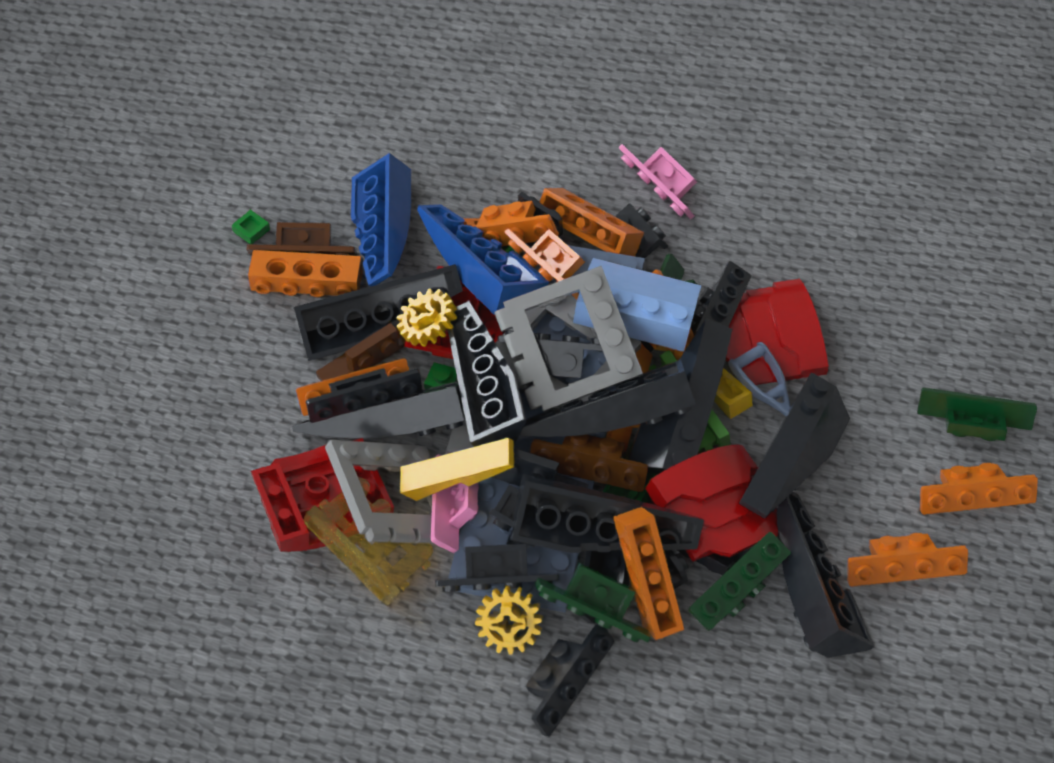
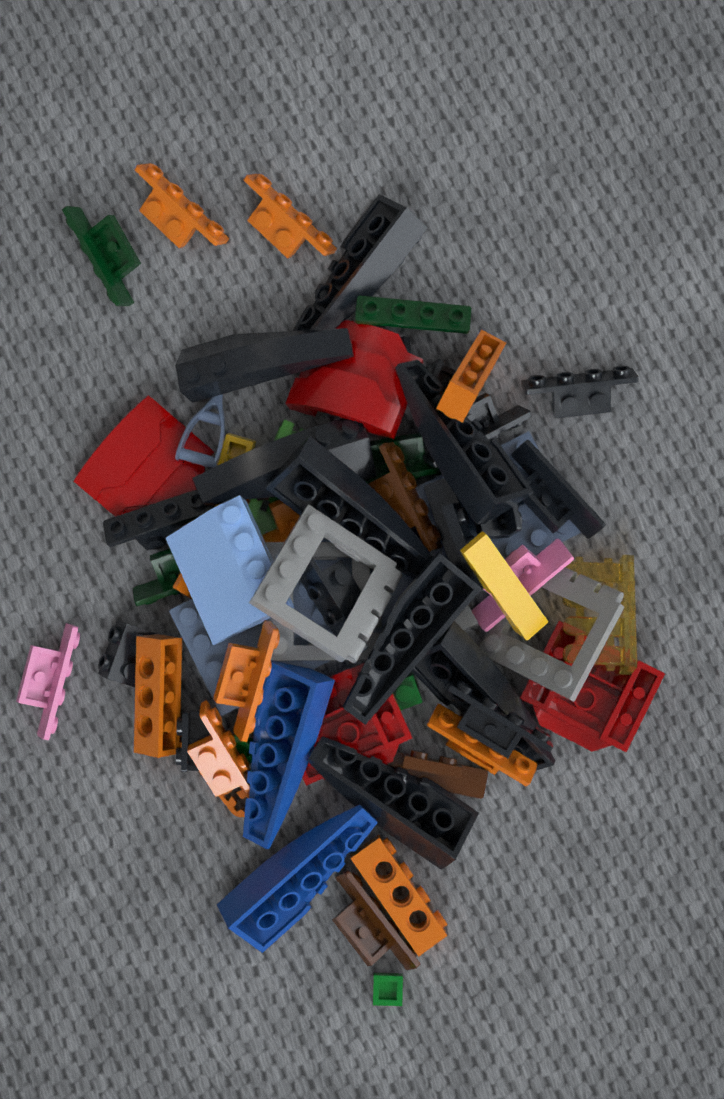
camera: 135 degrees left, 30 degrees up
(426, 317) = (392, 740): yellow gear -> none
(521, 619) = (578, 458): yellow gear -> none
(599, 597) = (520, 401): dark green bracket -> none

